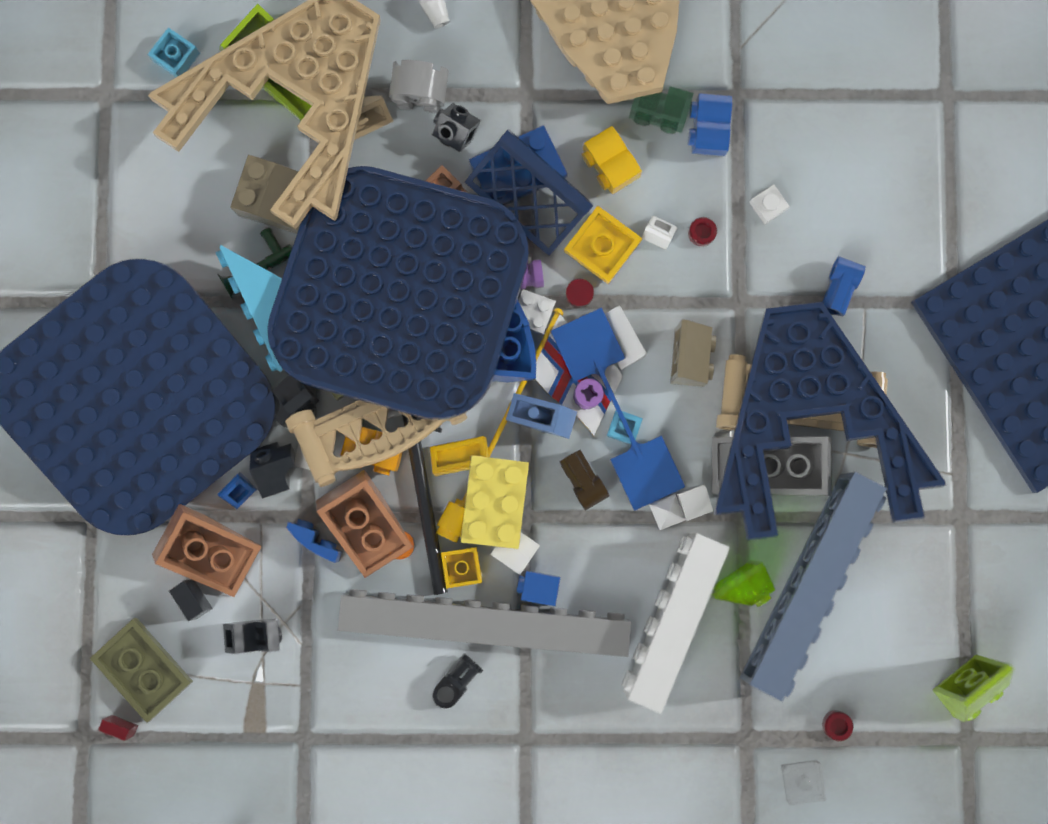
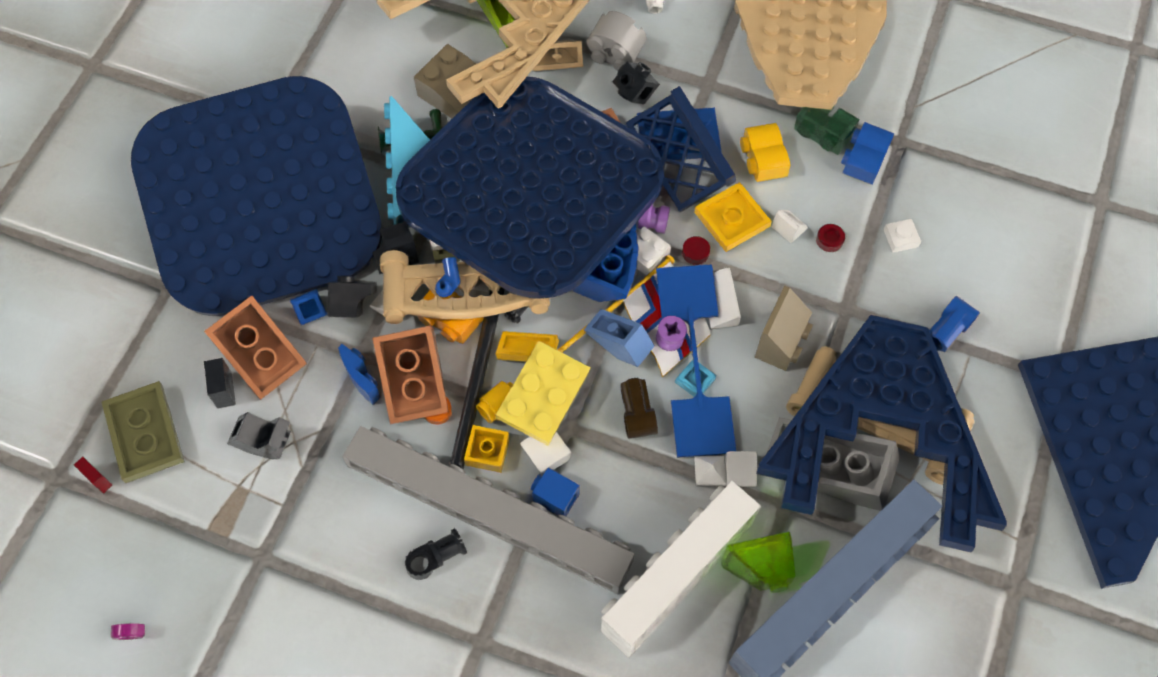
camera: 20 degrees right, 20 degrees down
(364, 424) = (450, 279): none -> blue arm

